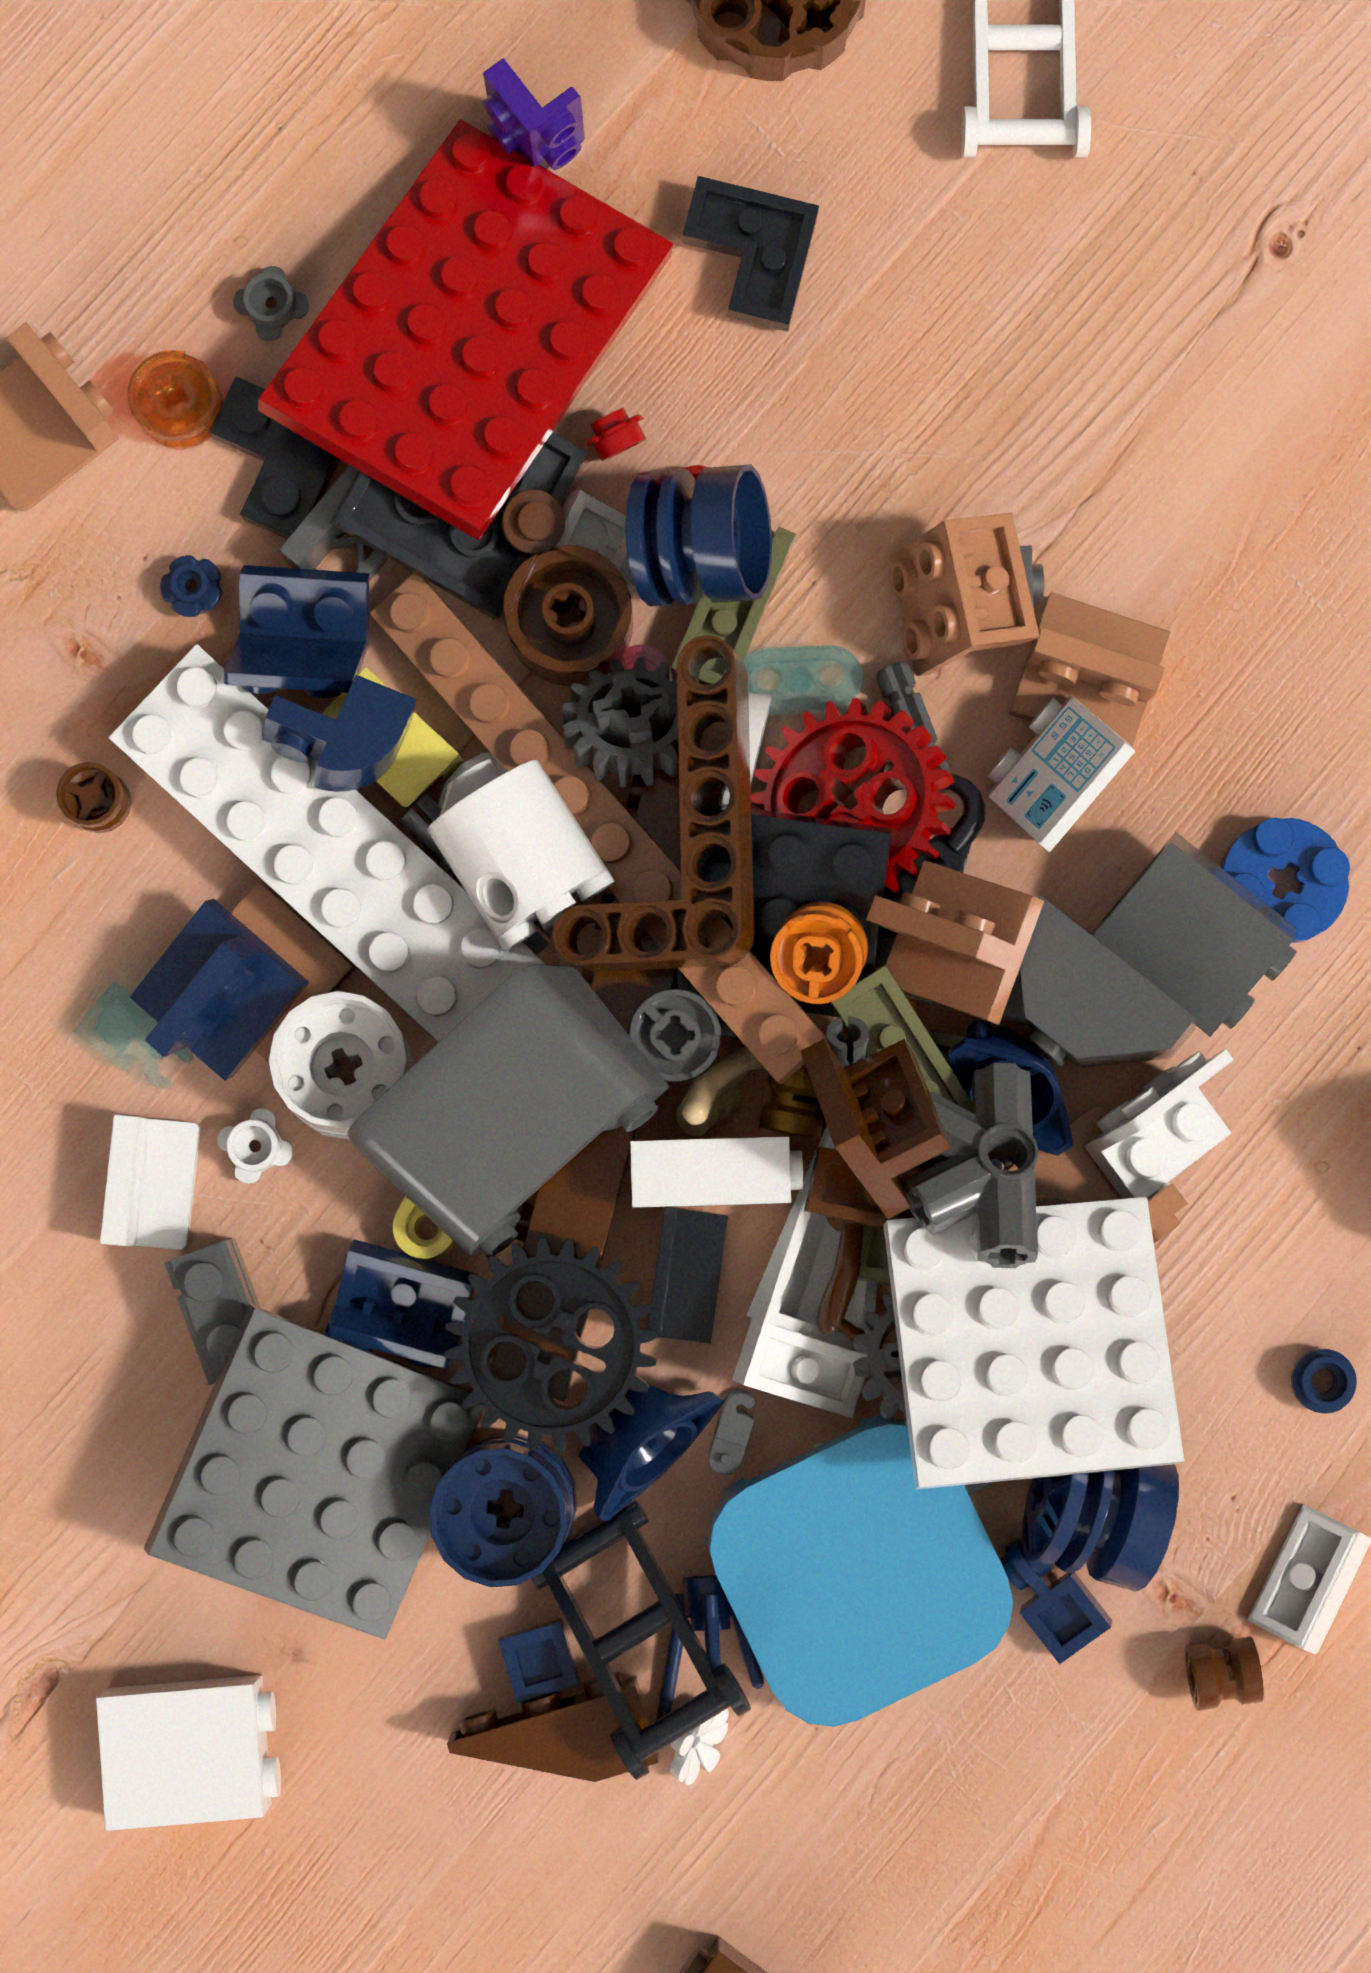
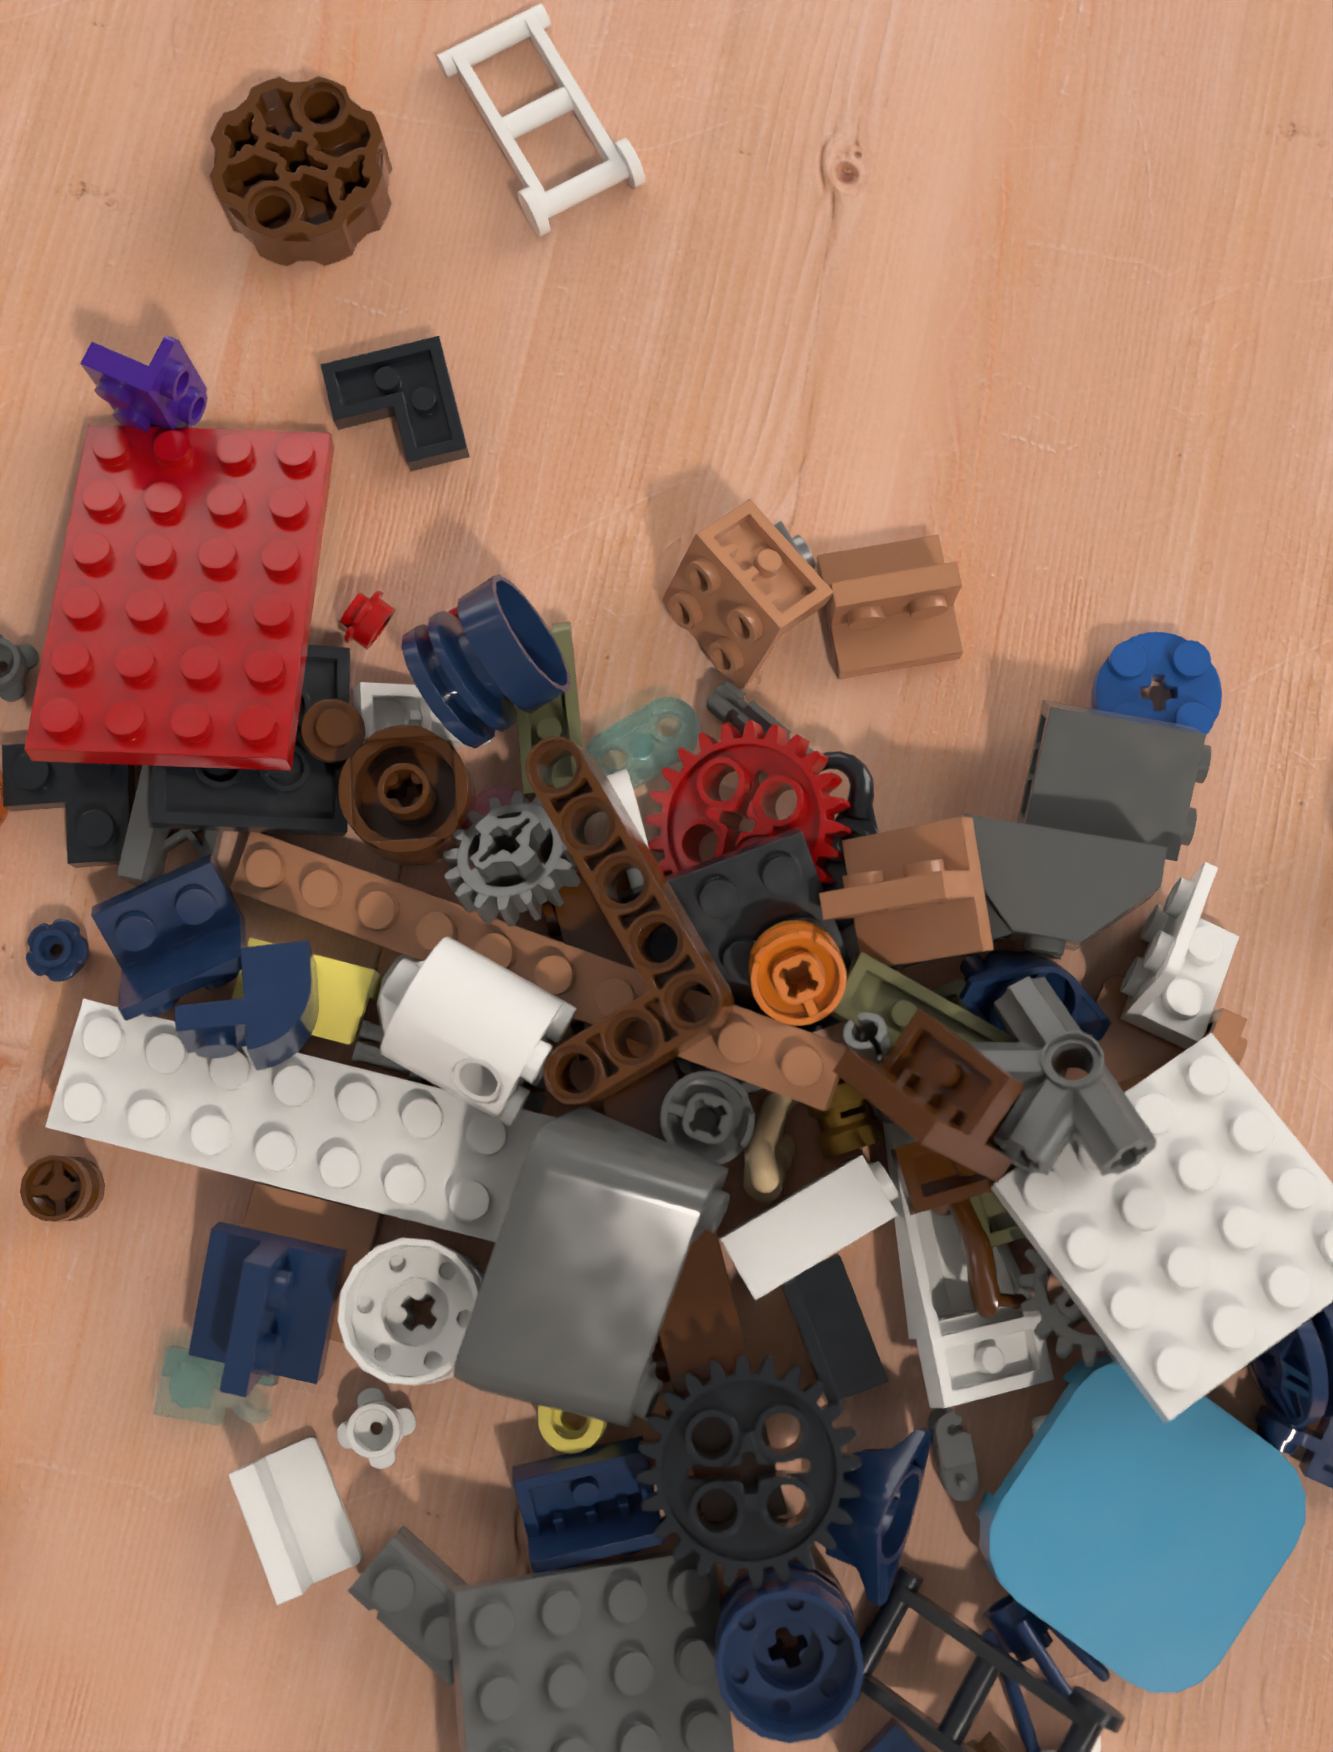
camera: 25 degrees left, 5 degrees down
(1058, 770) = (915, 698): slope -> none

